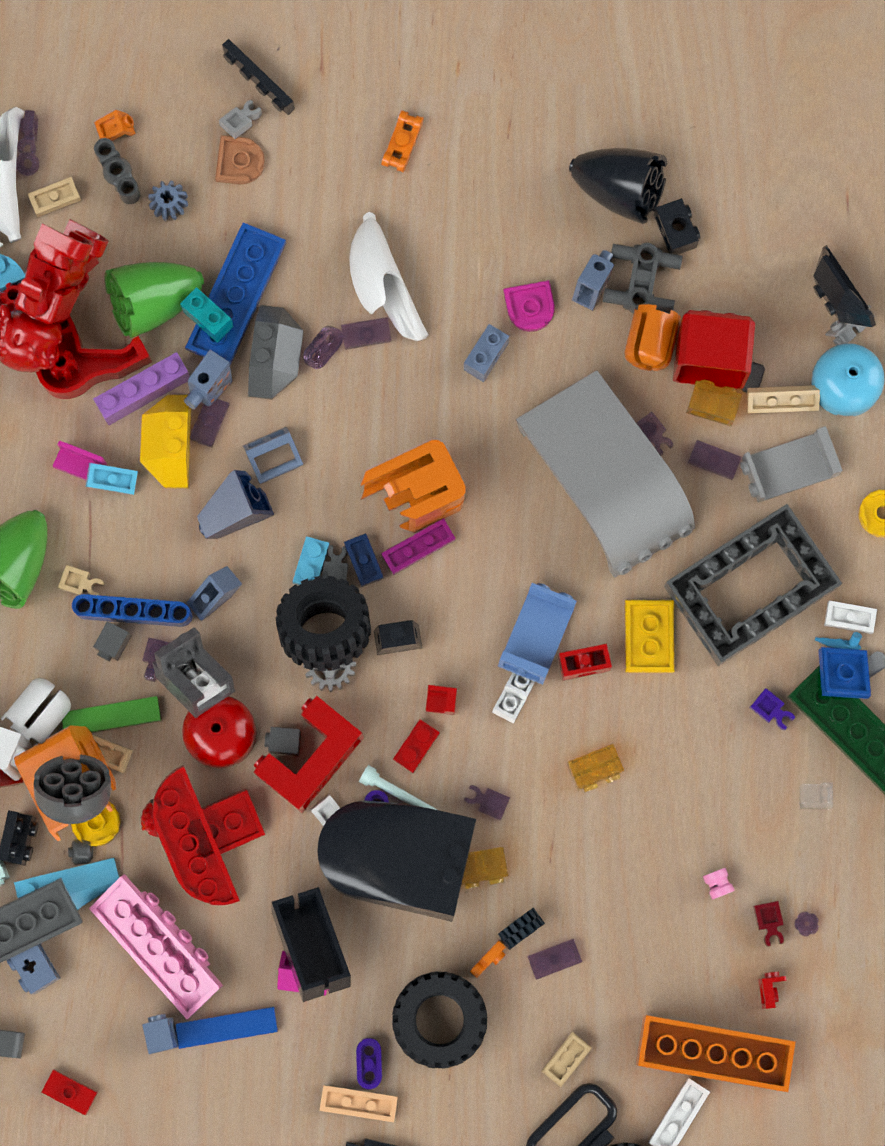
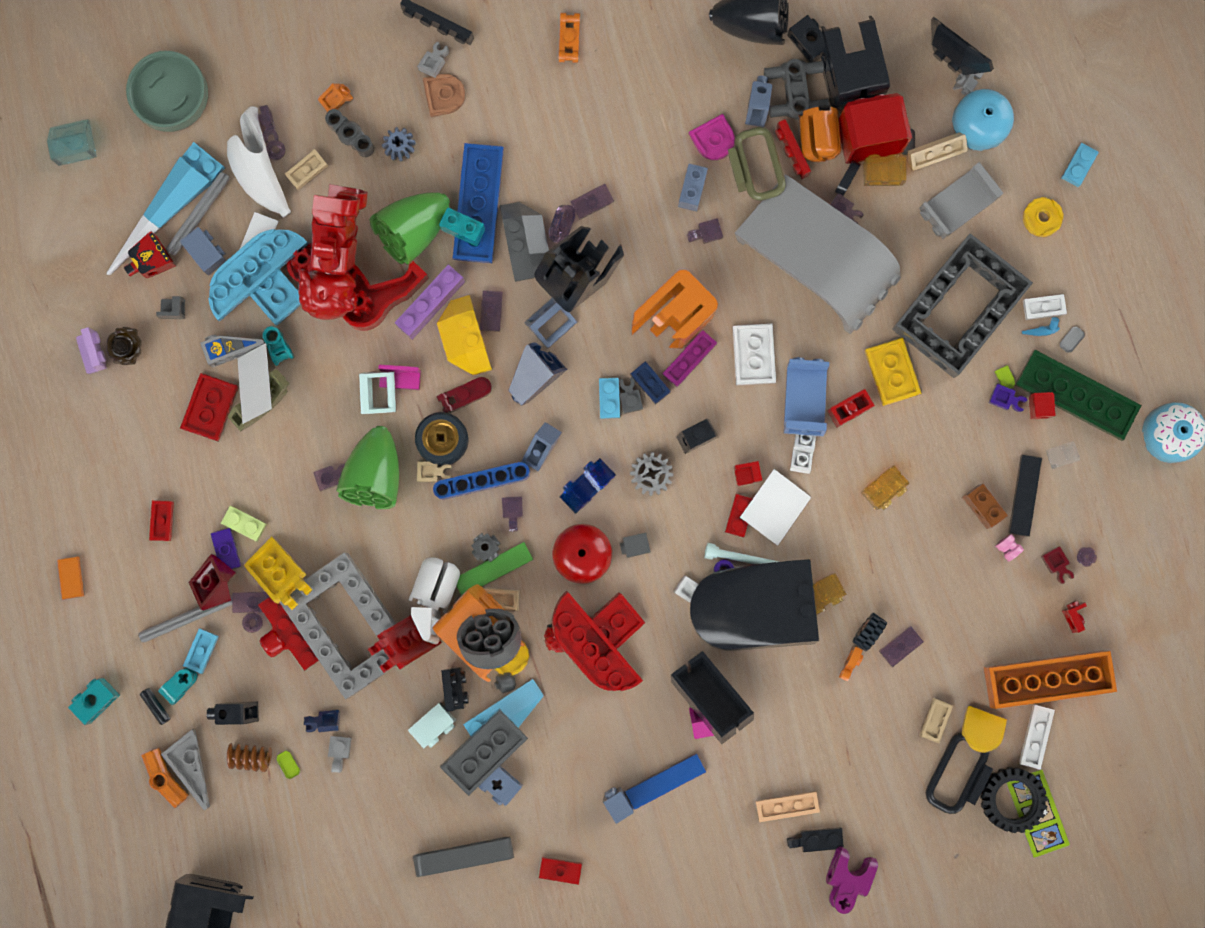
camera: 15 degrees left, 5 degrees up
(35, 468) = (366, 392): none -> light aqua tile
(111, 478) = (430, 381): medium azure plate -> none
(111, 642) = (474, 511): dark grey brick -> none
(116, 694) = (489, 555): none -> dark grey brick
(118, 548) = (428, 436): none -> wheel
(147, 506) = (465, 394): none -> dark red plate
(157, 945) = (591, 736): bright pink plate -> none
(192, 673) = (543, 512): flat silver brick -> none
(208, 380) = (481, 279): sand blue torso -> none
(250, 654) = (583, 489): none -> clear blue brick
(312, 388) = (564, 262): none -> black piece
(319, 597) = (629, 422): black tyre -> none
(339, 744) = (681, 531): red piece -> none
(369, 263) = (589, 155): white piece -> none
(369, 1063) = (784, 773): dark purple plate -> none
(406, 1029) = (855, 734): black tyre -> none
(461, 749) = (775, 507): none -> white sticker
(489, 408) = (708, 232): none -> clear purple plate
(490, 803) = (812, 541): clear purple plate -> none
(494, 565) = (754, 354): none -> white tile
(548, 348) = (741, 169): none -> olive bar
(615, 345) = (792, 149): none -> red plate
(617, 1088) = (983, 730): none -> yellow tile
(669, 397) = (848, 177): none -> black beam
(705, 825) = (985, 506): none -> dark orange brick
(711, 280) = (856, 73): none -> black piece
(714, 460) = (898, 216): clear purple plate -> none
(757, 829) = (1025, 495): none -> black tile
(779, 684) = (1005, 377): none -> lime piece
(810, 730) = (1042, 405): none -> red panel
(844, 673) = (1054, 352): blue tile -> none

